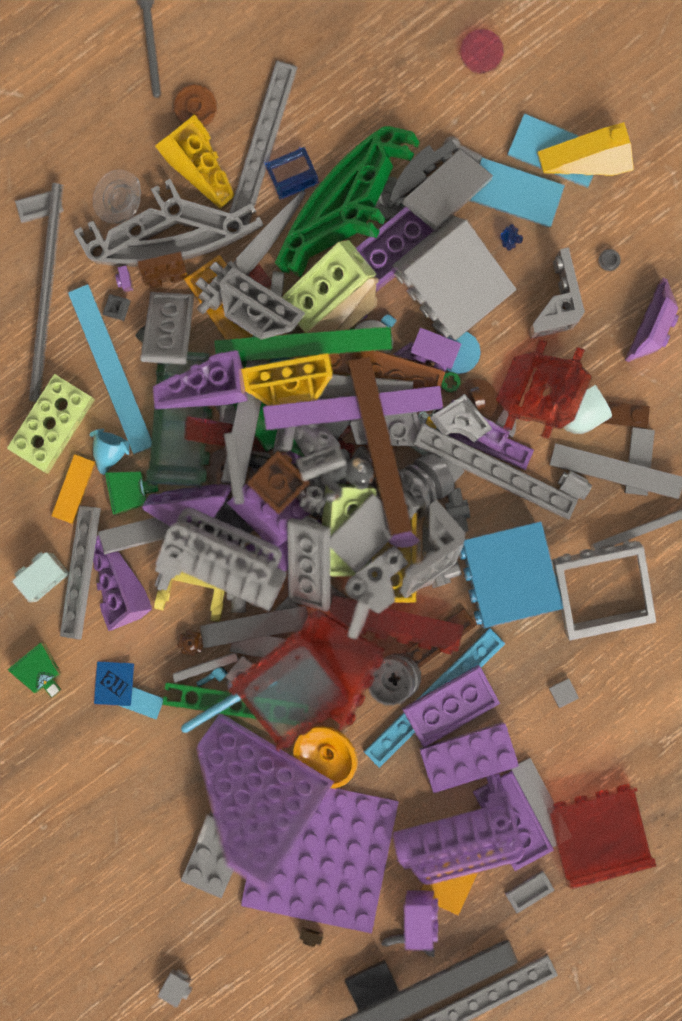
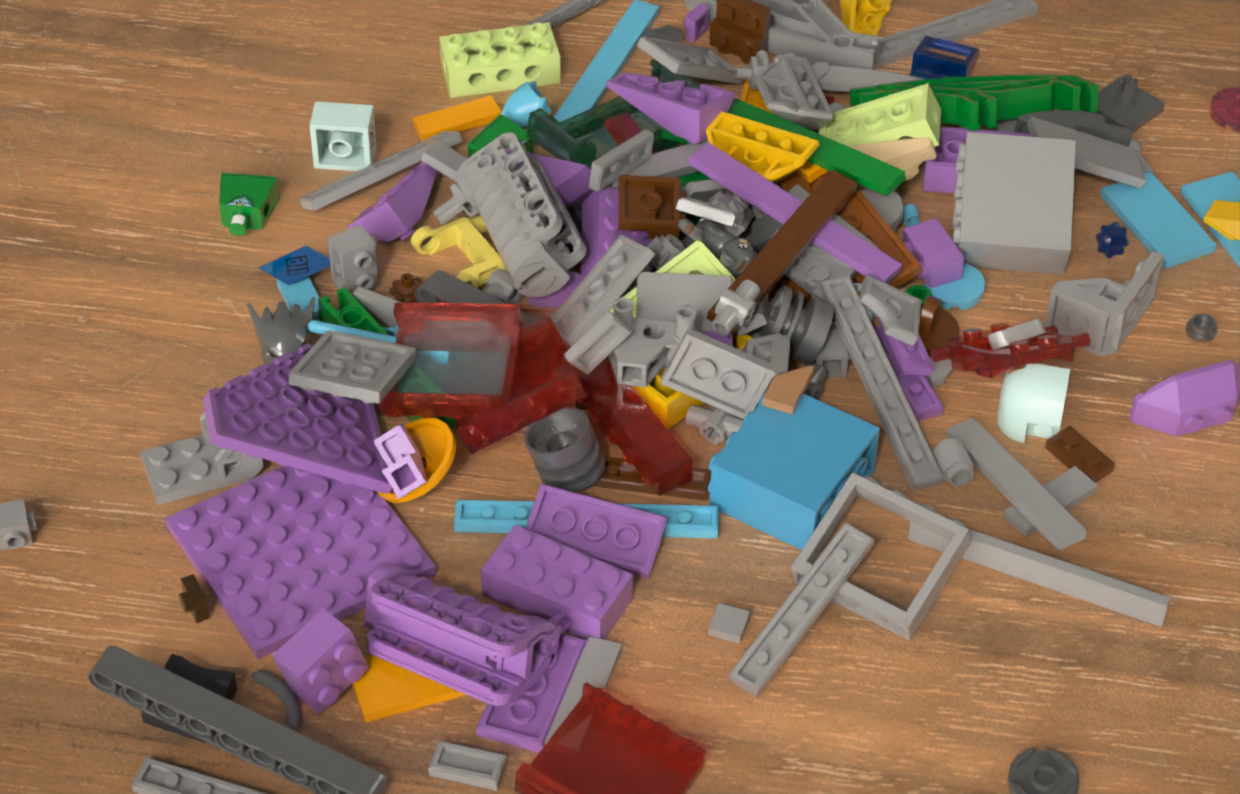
camera: 45 degrees right, 40 degrees down
(150, 659) = (354, 259): none -> light grey brick
(170, 743) = (282, 330): none -> dark grey piece
(248, 746) = (352, 366): none -> light grey plate
(333, 771) = (403, 459): none -> slope
(407, 524) = (735, 307): none -> light grey axle
(419, 110) = (1127, 104): none -> dark grey tile
(476, 544) = (787, 389): none -> medium nougat tile
(547, 385) = (1016, 333): none -> light grey beam
(597, 659) = (801, 610): none -> light grey tile

